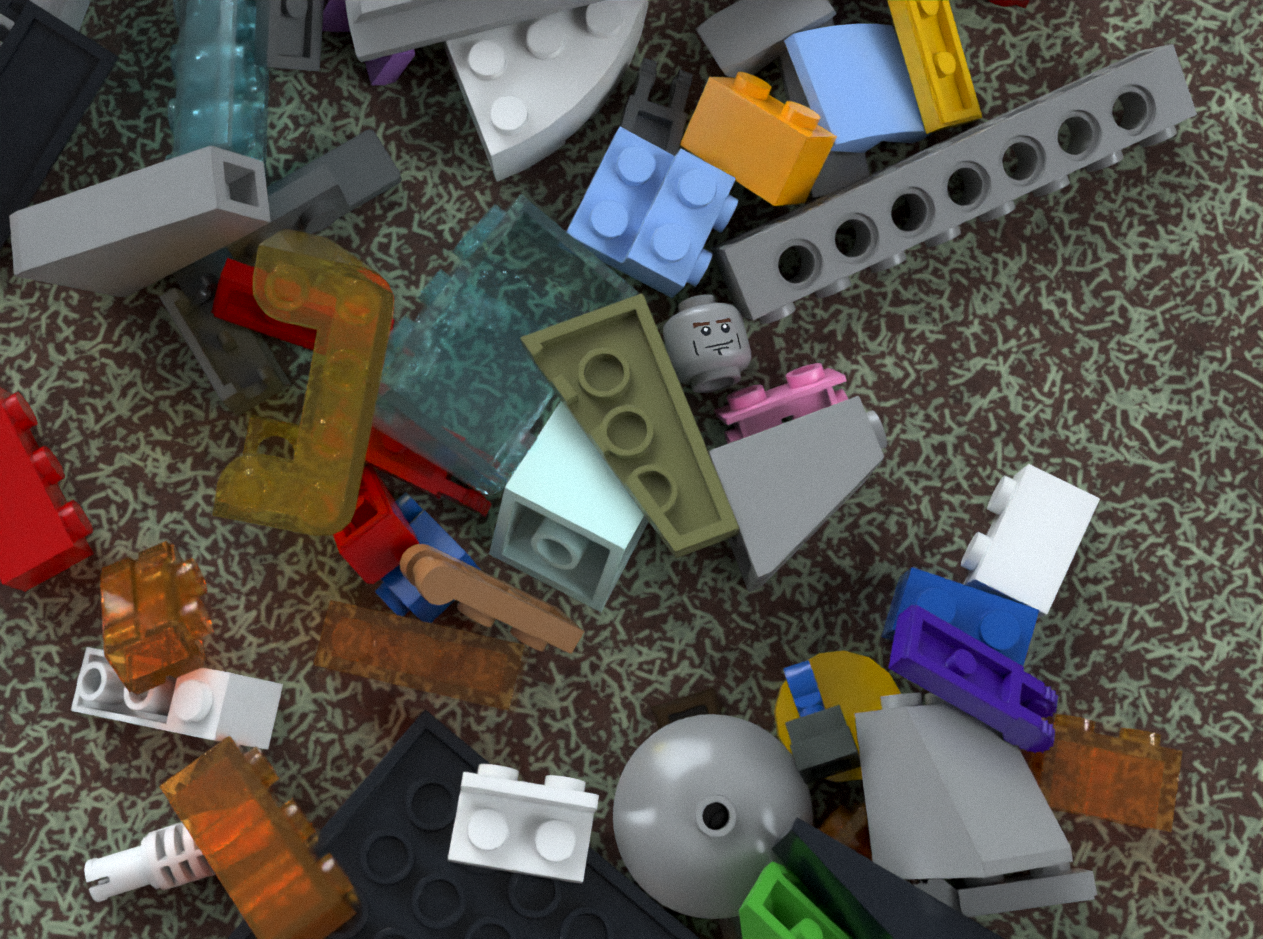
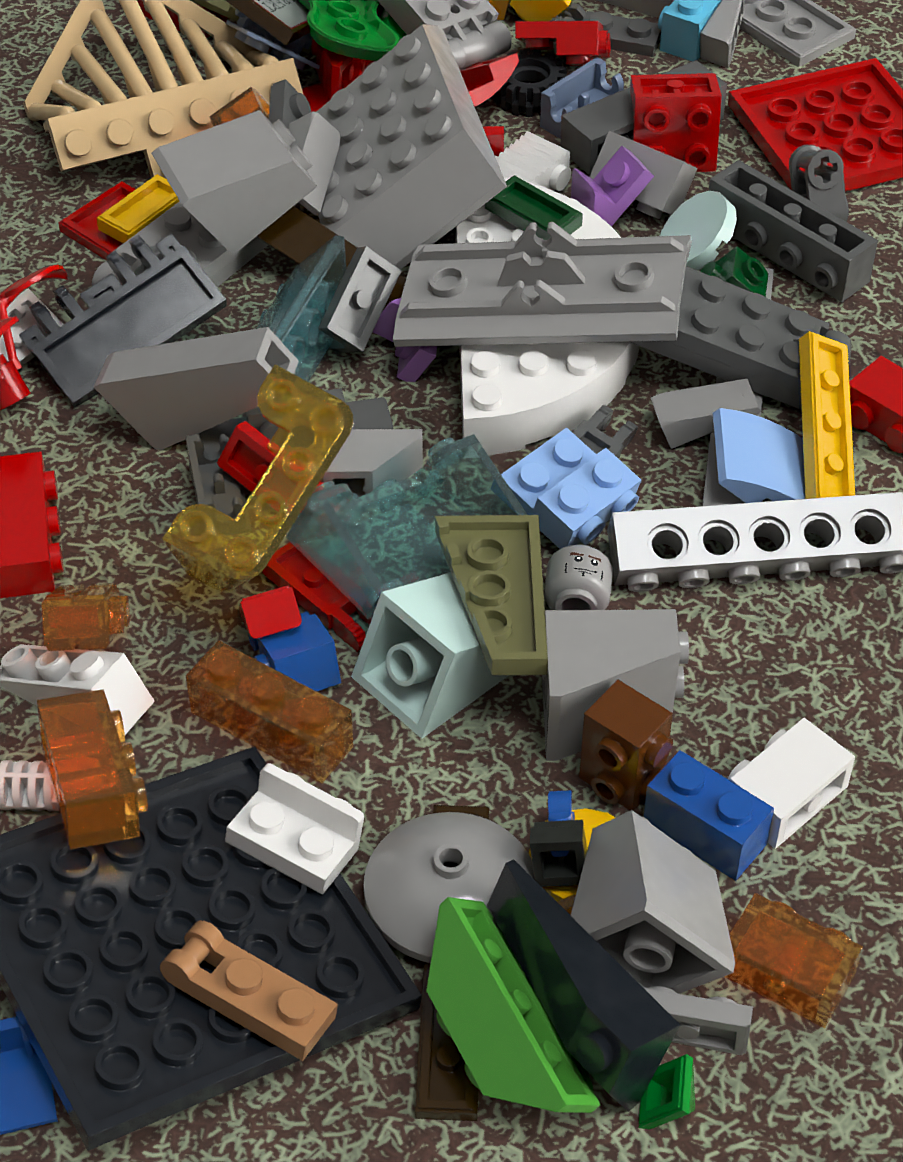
camera: 20 degrees right, 30 degrees down
(397, 236) = (375, 457): none -> light grey slope
(487, 598) = (339, 672): medium nougat plate -> none
(758, 139) = (669, 464): light orange brick -> none
(851, 579) = (624, 745): none -> reddish brown brick
(973, 678) = (701, 829): dark purple hinge -> none

